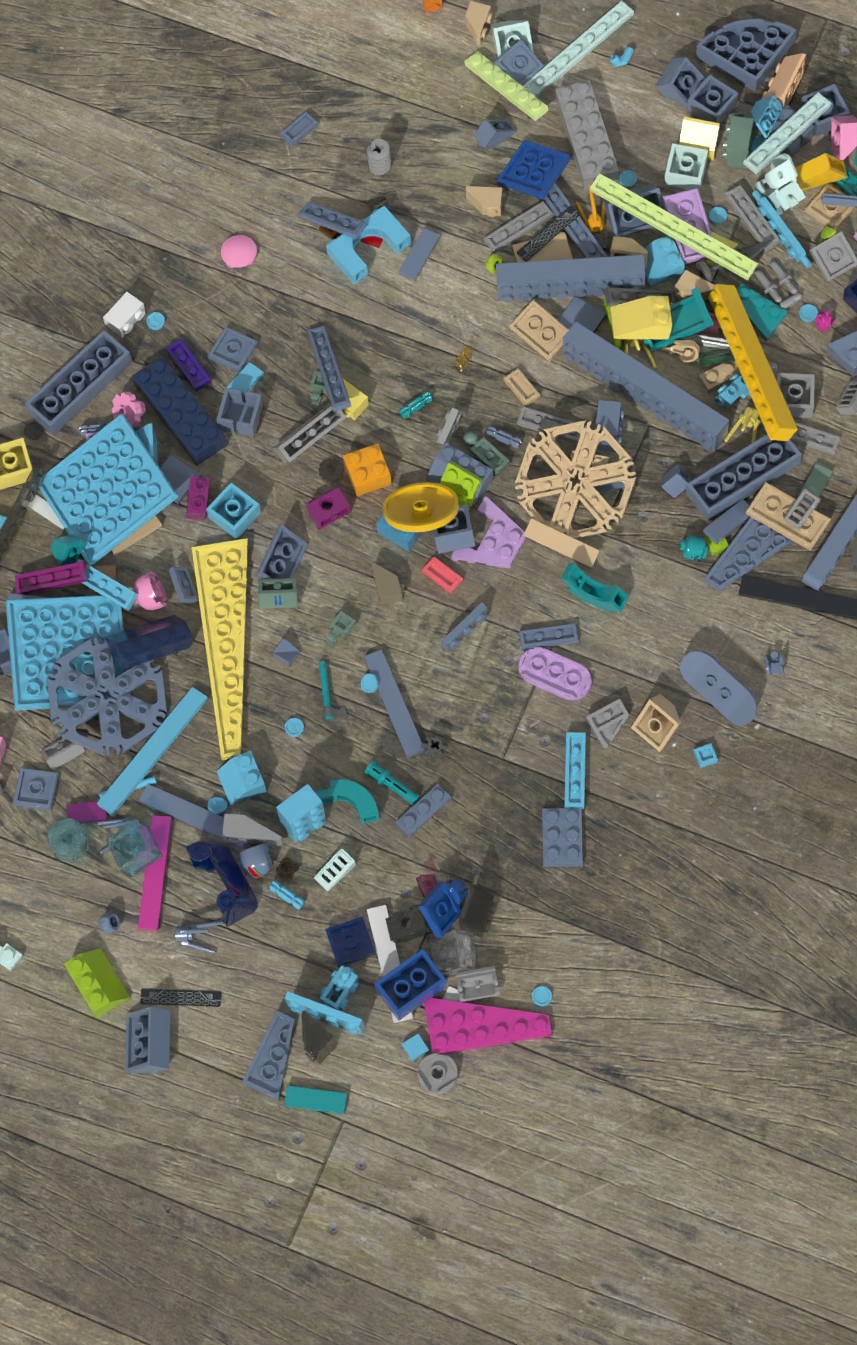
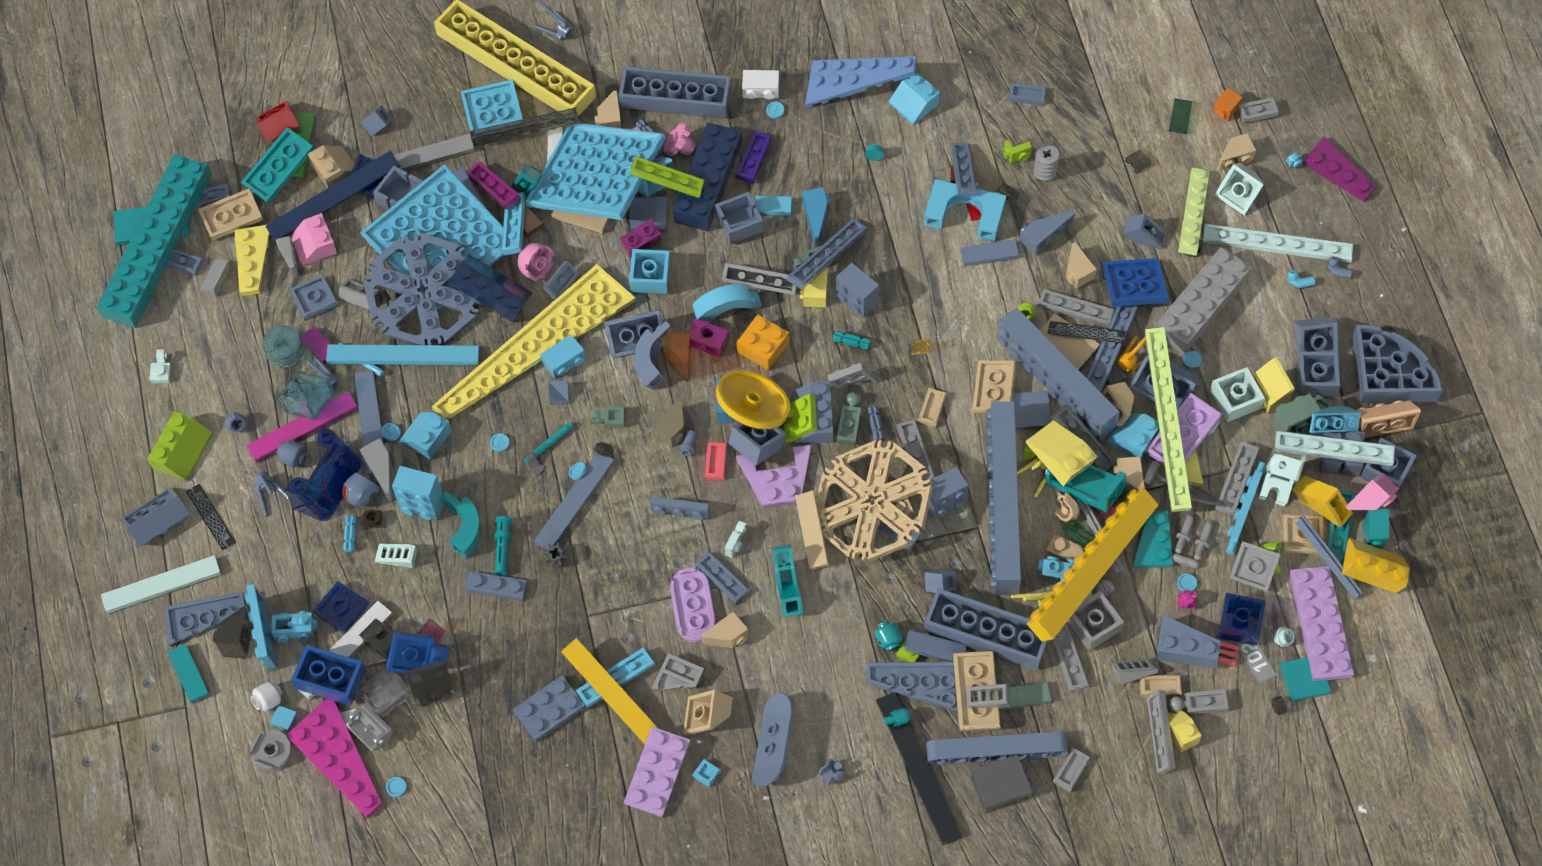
camera: 50 degrees right, 5 degrees down
(55, 445) = (609, 112): none -> tan slope
(165, 437) = (666, 176): none -> lime tile
(175, 245) = (852, 76): none -> medium blue wing
(177, 894) = (291, 453): none -> sand blue head
(214, 1074) = (160, 584): none -> light aqua tile
(233, 349) = (793, 178): sand blue tile -> none
(235, 210) = (915, 98): none -> medium azure slope
(238, 251) = (883, 125): bright pink dish -> none
(257, 628) = (563, 356): none -> medium azure brick
(260, 274) = (874, 152): none -> teal tile
(277, 593) = (602, 350): sand green brick -> none
(278, 352) = (815, 208): none -> dark azure slope
(307, 473) = (725, 298): none -> medium azure arch
(308, 563) = (646, 355): none -> sand blue arch
(328, 536) = (678, 351): none -> clear orange slope
(346, 176) = (1017, 153): none -> lime bracket
(366, 651) = (603, 449): none -> clear smoke piece
(379, 369) = (857, 290): none -> sand blue brick
(387, 1048) = (266, 696): none -> white head
(411, 37) = (1180, 116): none -> clear green tile
(414, 587) = (689, 440): none -> sand blue pin
(426, 94) = (1137, 161): none -> clear smoke tile
(434, 204) = (1043, 231): none -> sand blue slope
(519, 62) = (1223, 207): sand blue tile -> none
(527, 607) = (734, 543): none -> light aqua plate
(601, 662) = (726, 633): none -> tan slope
(603, 778) = (608, 689): none -> yellow tile
(633, 27) = (1336, 270): none -> sand blue arm
(679, 789) = (657, 772): none -> lavender plate
(717, 215) = (1218, 451): medium azure piece -> none
(767, 586) = (898, 717): none -> teal cylinder

